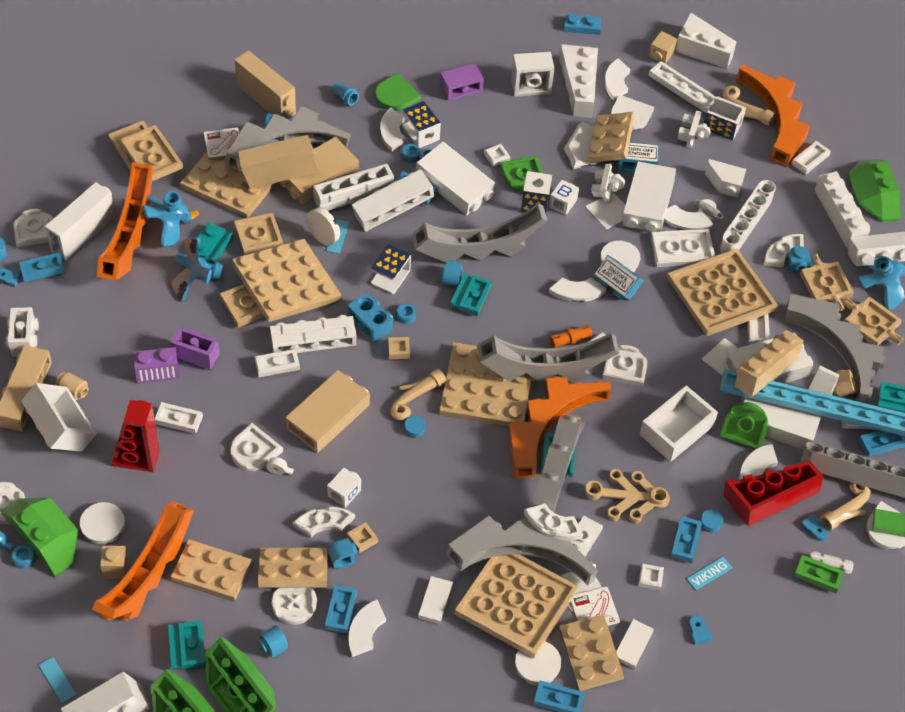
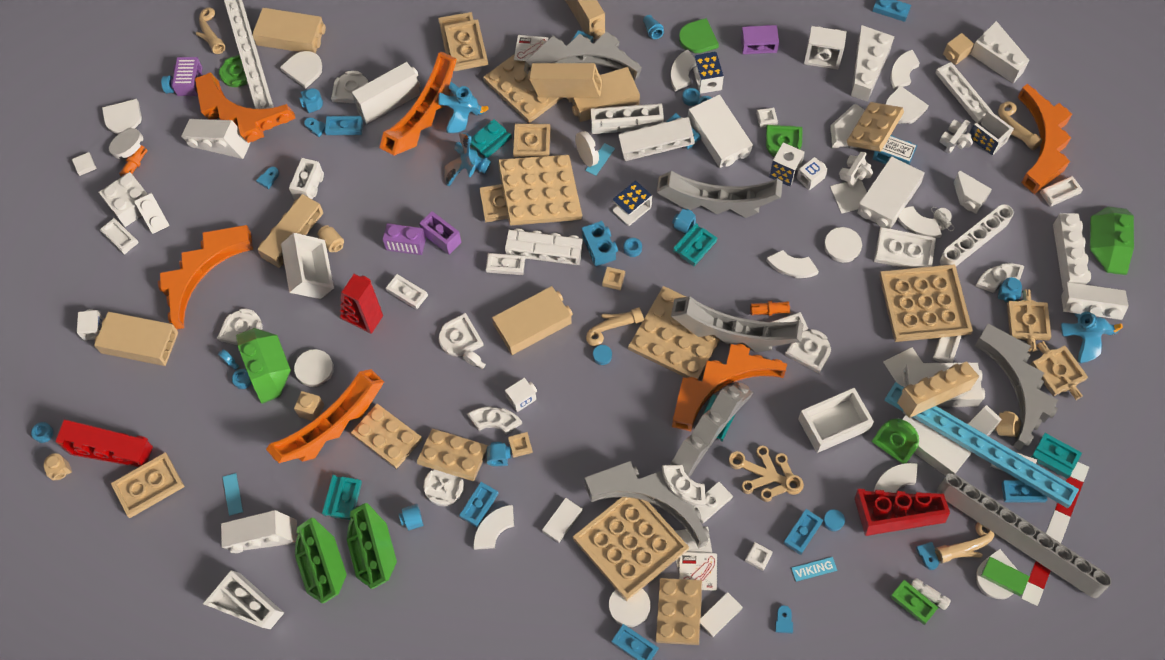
camera: 25 degrees right, 10 degrees up
(618, 277) = (832, 264): brick -> none

